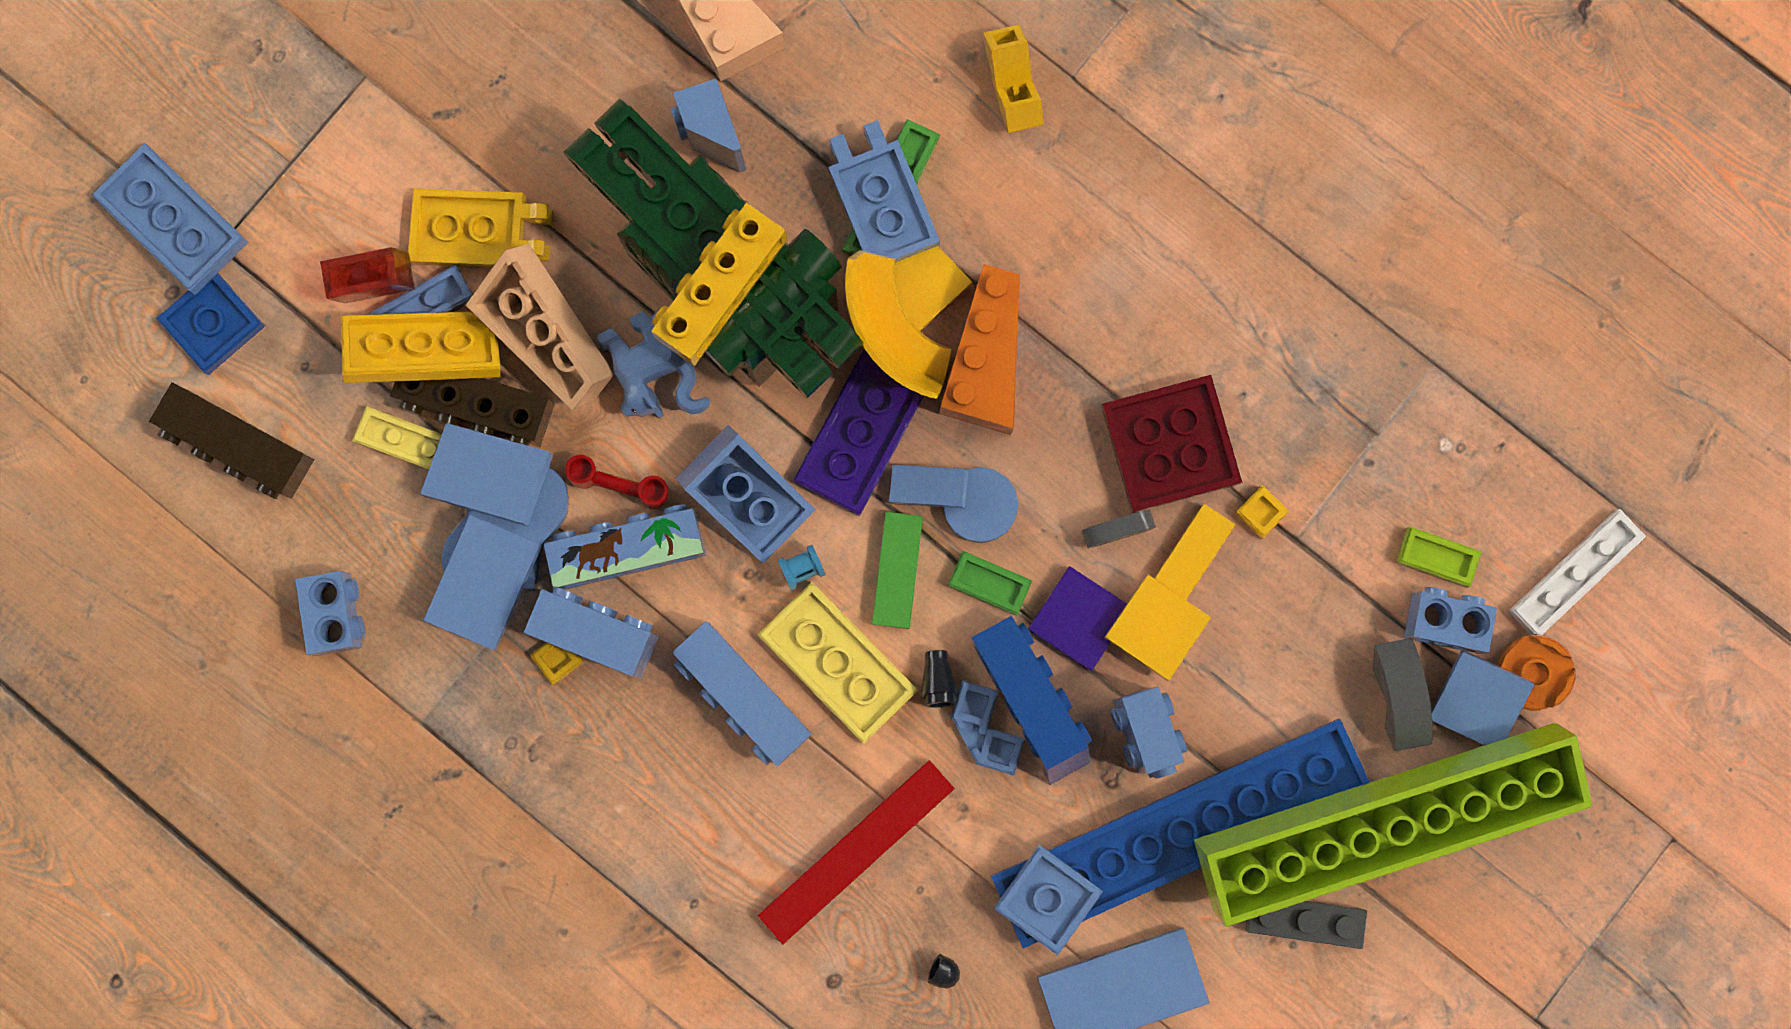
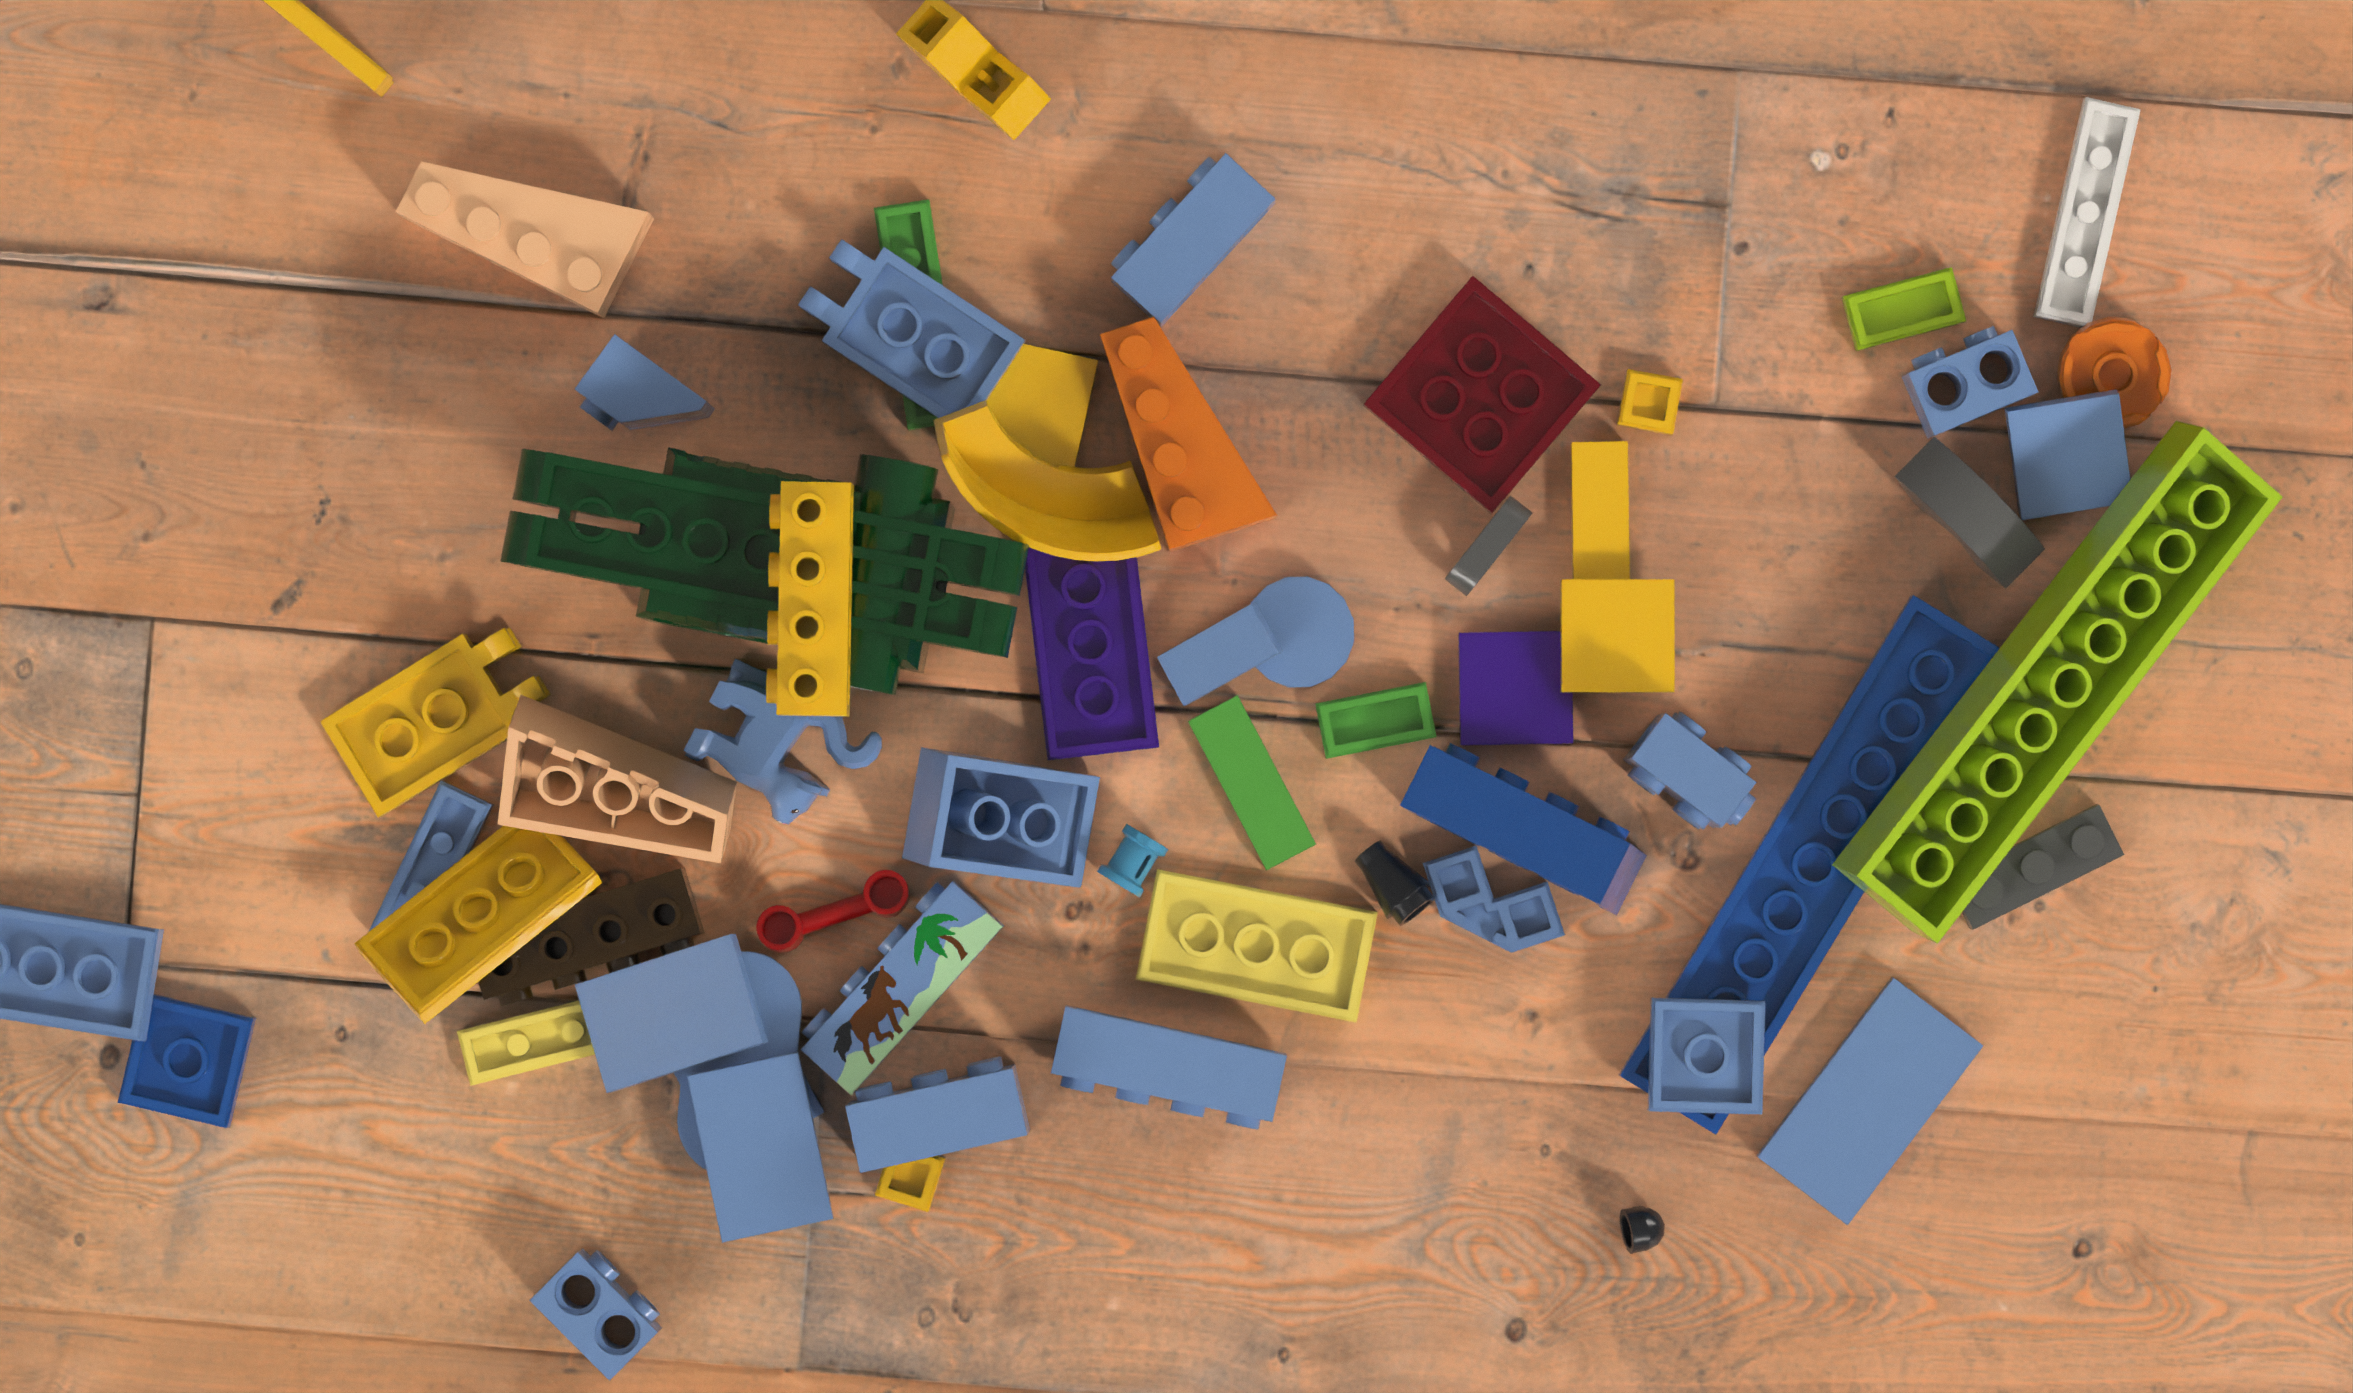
camera: 30 degrees left, 5 degrees up
(230, 440) = (326, 1188): dark brown brick -> none
(367, 275) = (348, 870): clear red brick -> none
(855, 852) = (1437, 1157): red tile -> none
(1069, 250) = (1191, 238): none -> medium blue brick

